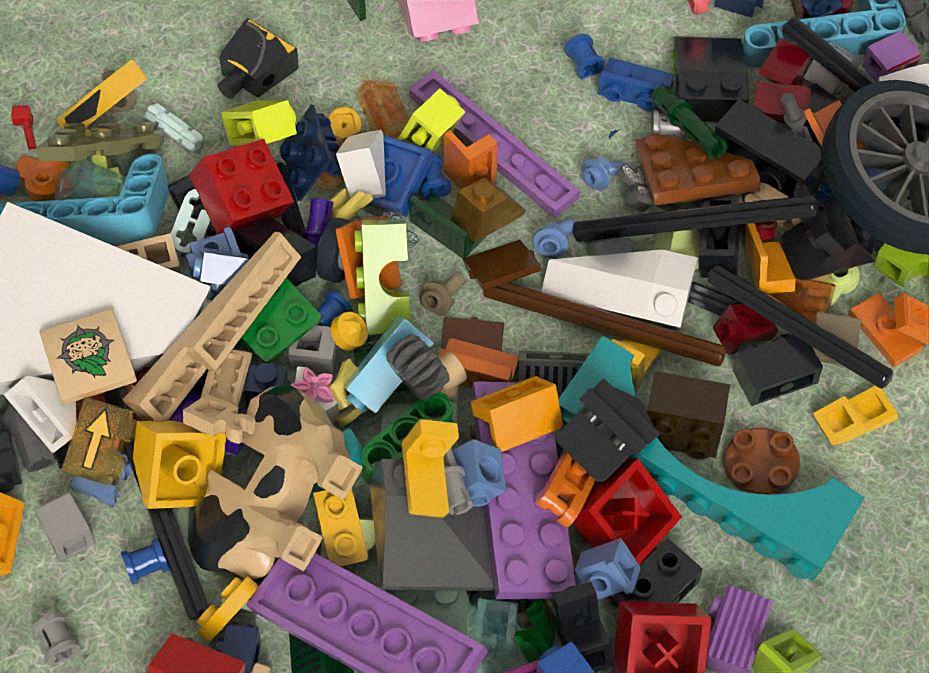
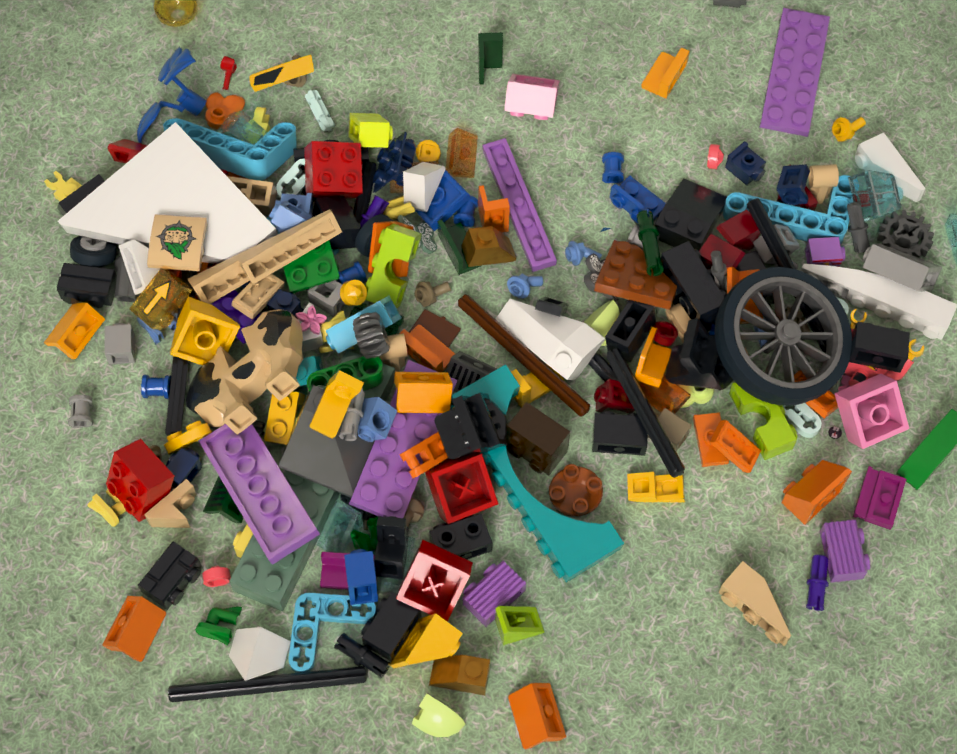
camera: 25 degrees right, 5 degrees up
(78, 143) = (267, 103): olive plate -> none
(215, 416) = (235, 313): tan plate -> none
(255, 61) = (392, 85): black torso -> none
(432, 120) = (479, 172): neon yellow brick -> none
(502, 264) = (478, 289): reddish brown piece -> none
(608, 568) = (421, 516): medium blue brick -> none
(696, 218) = (616, 311): black axle -> none

